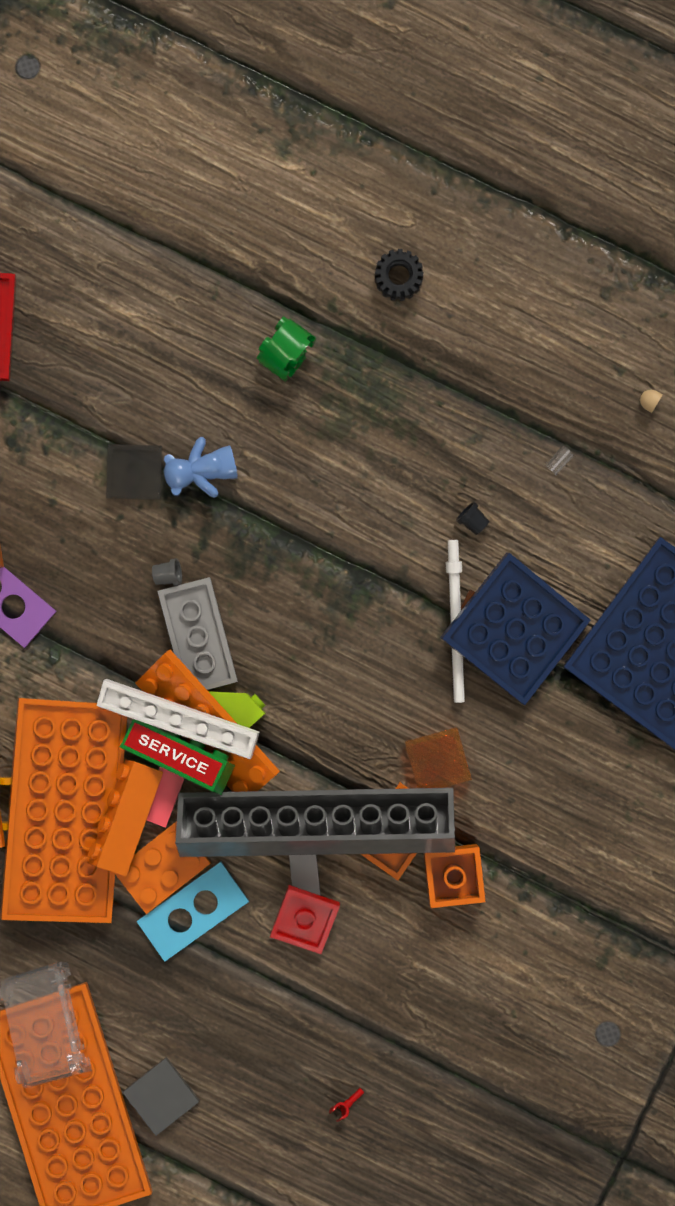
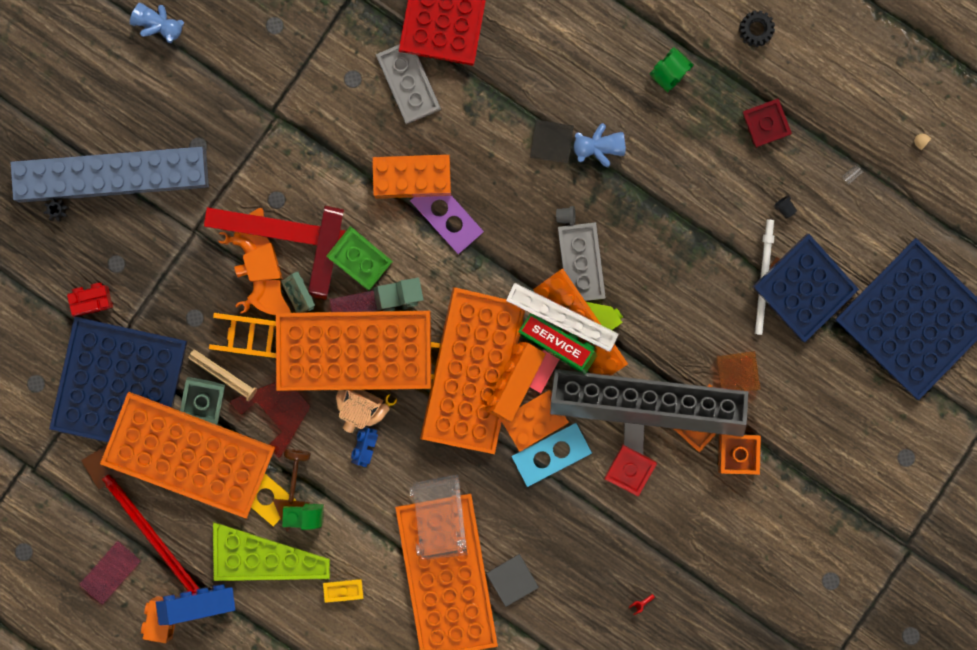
camera: 10 degrees right, 0 degrees up
(430, 404) = (766, 123): none -> dark red plate

